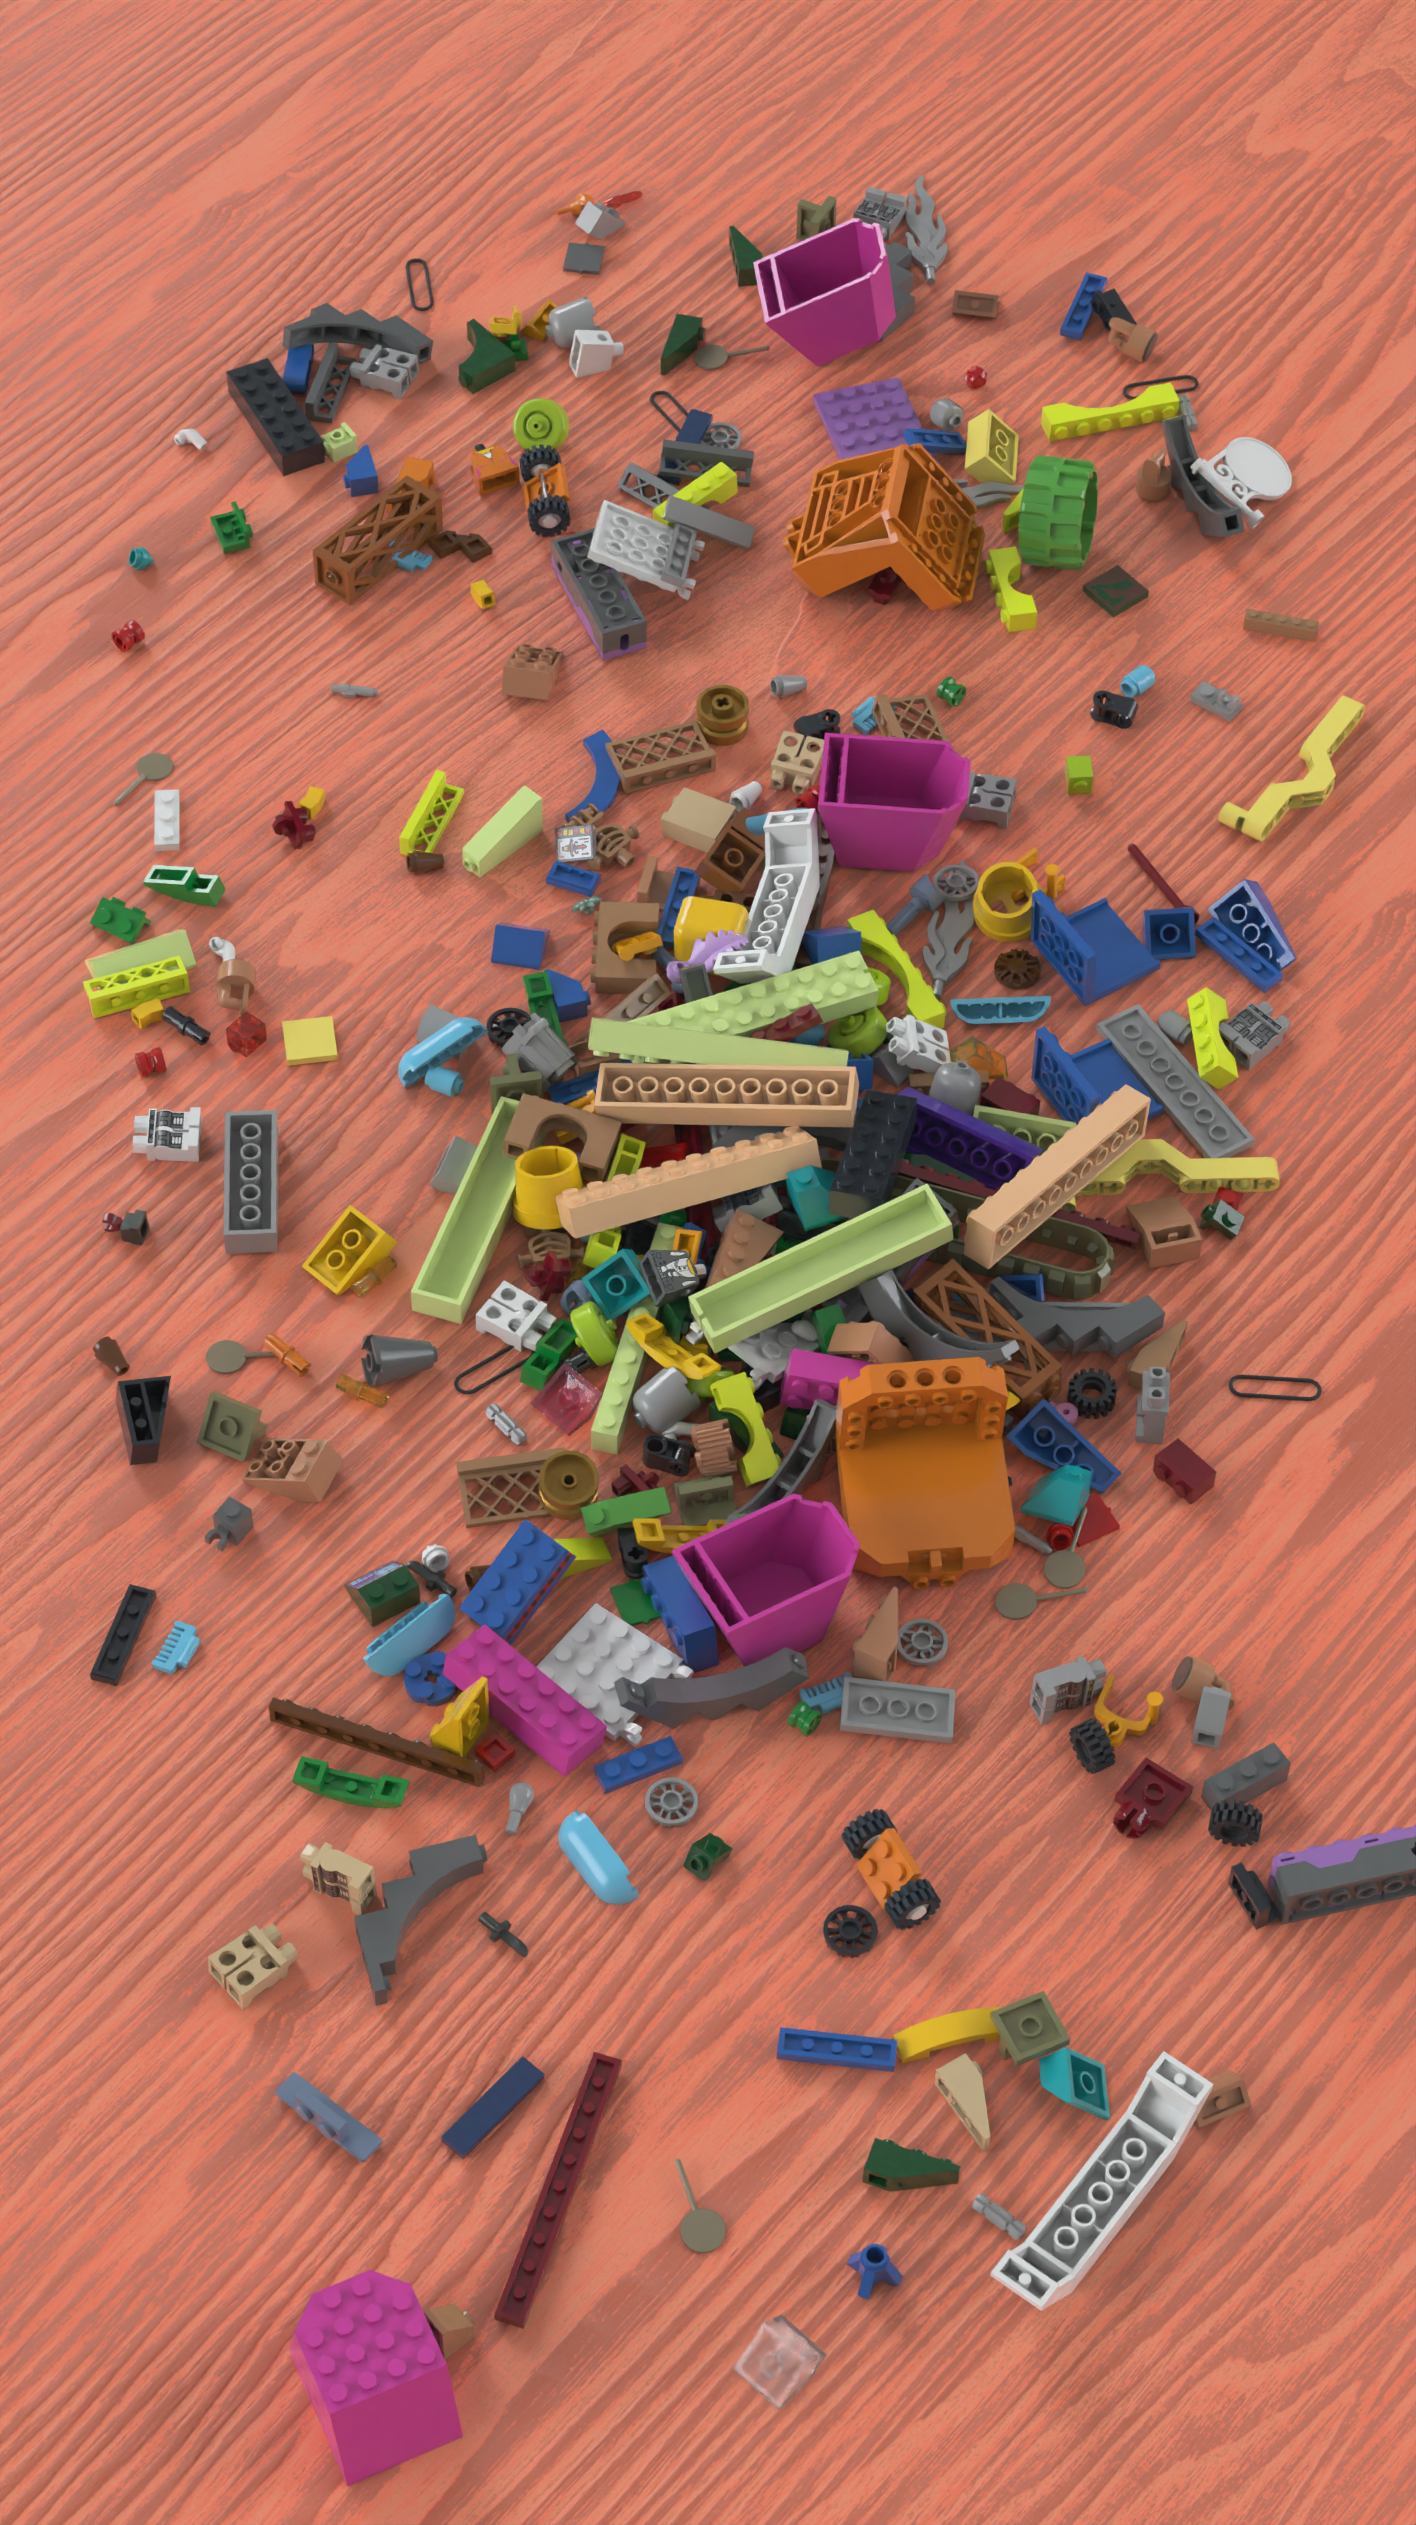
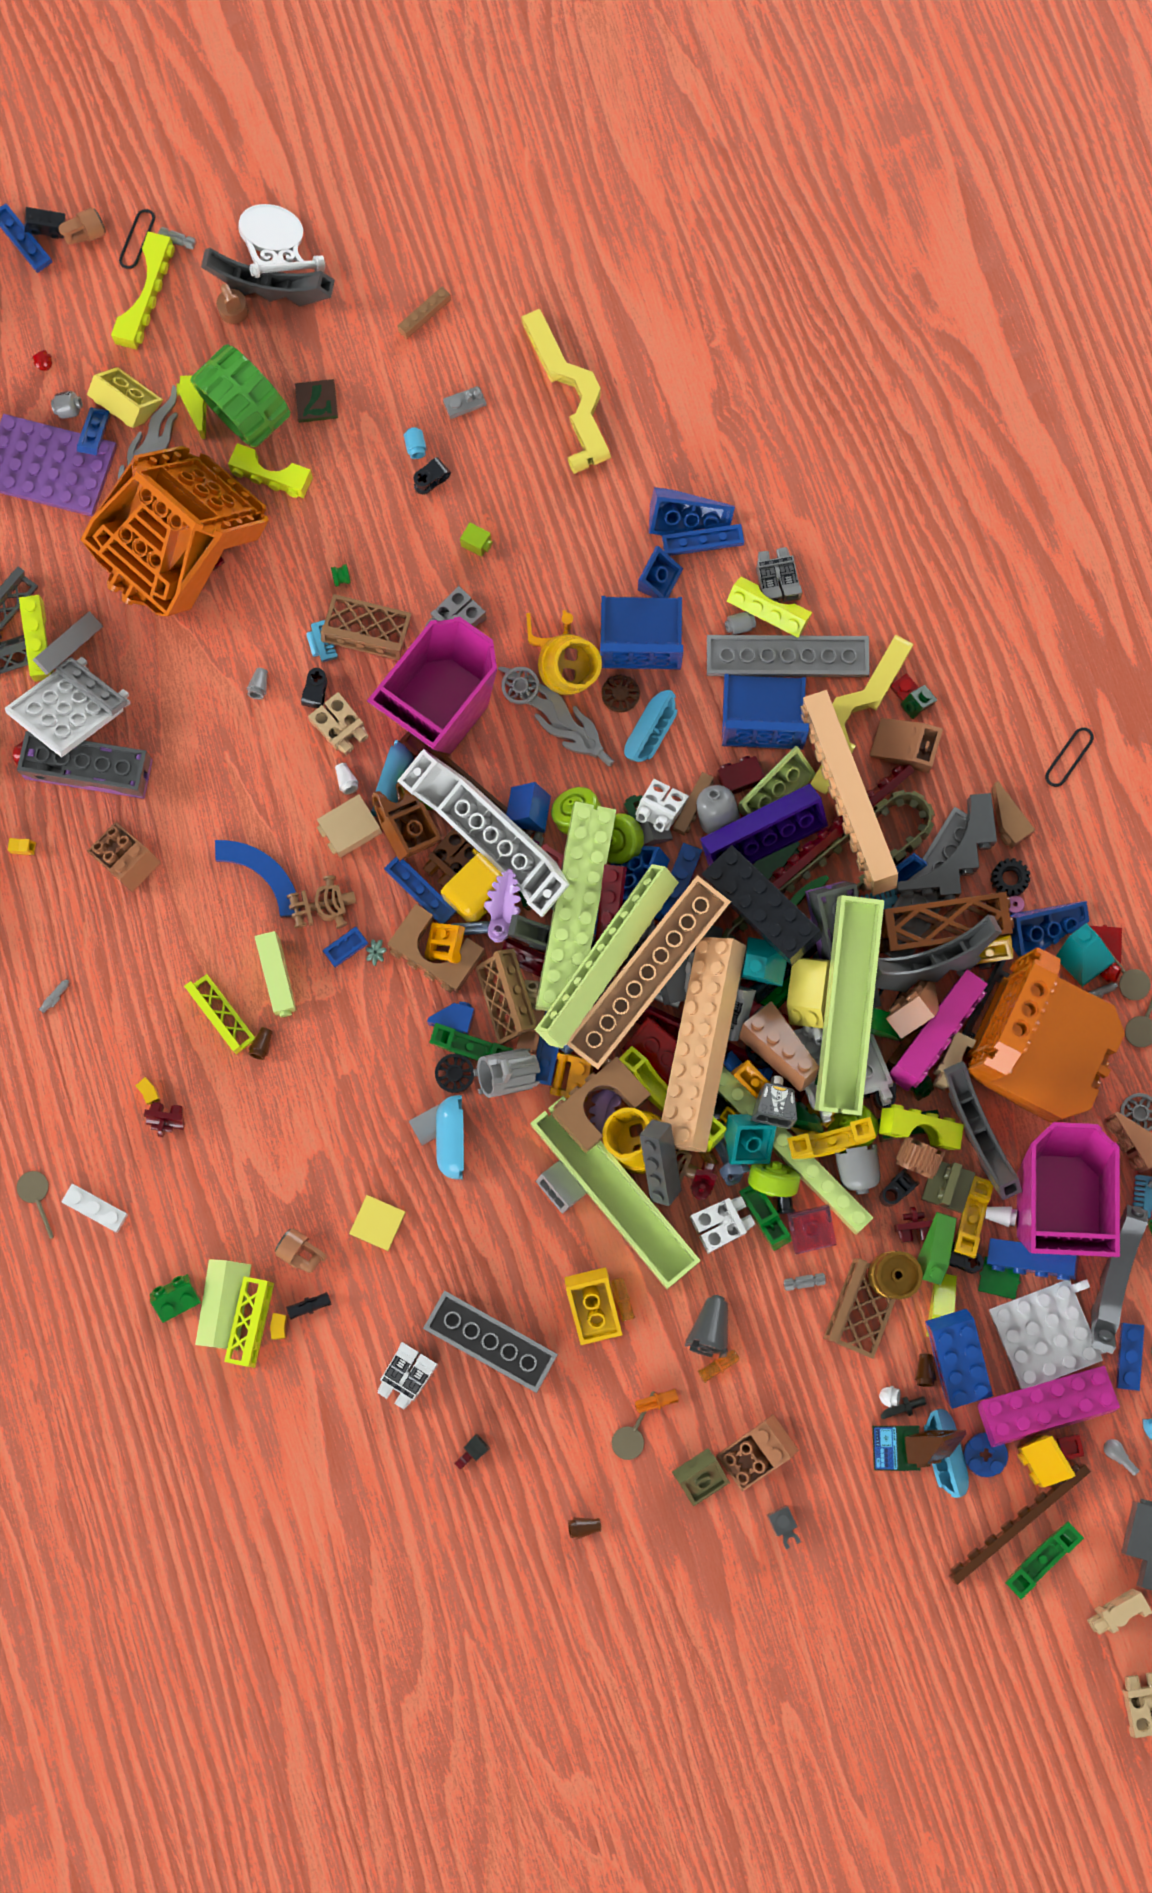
camera: 55 degrees left, 25 degrees up
(123, 1635) = (827, 1648): black tile -> none
(142, 1415) = (657, 1536): black wedge -> none
(145, 1065) = (329, 1351): red wheel -> none
(183, 1651) = (863, 1611): medium azure piece -> none
(185, 884) = (170, 1231): green slope -> none
(222, 948) = (251, 1236): white arm -> none
(246, 1034) = (346, 1268): clear red brick -> none
(403, 1596) = (932, 1446): none -> reddish brown slope
(444, 1080) = (479, 1149): medium azure brick -> none
(492, 1379) = (757, 1266): black piece -> none
(513, 1083) = (526, 1107): olive bracket -> none
(519, 945) = (381, 1020): blue slope -> none
(535, 1206) = (660, 1162): none -> dark grey brick
(575, 843) = (319, 928): piece -> none
(654, 884) = (389, 893): nougat panel -> none
(667, 769) = (286, 813): medium nougat fence -> none
(678, 1429) = (883, 1162): white arm -> none
(722, 715) = (258, 737): pearl gold wheel -> none
(810, 799) = (381, 736): red wheel -> none
(884, 947) = (619, 780): neon yellow arch -> none
(924, 897) = (522, 715): sand blue piece -> none
(980, 1057) = (689, 773): clear yellow slope -> none
(1152, 1406) = (1055, 844): light grey hips -> none
(1158, 880) = (645, 550): dark red piece -> none
(1184, 1471) = (1108, 860): dark red brick -> none

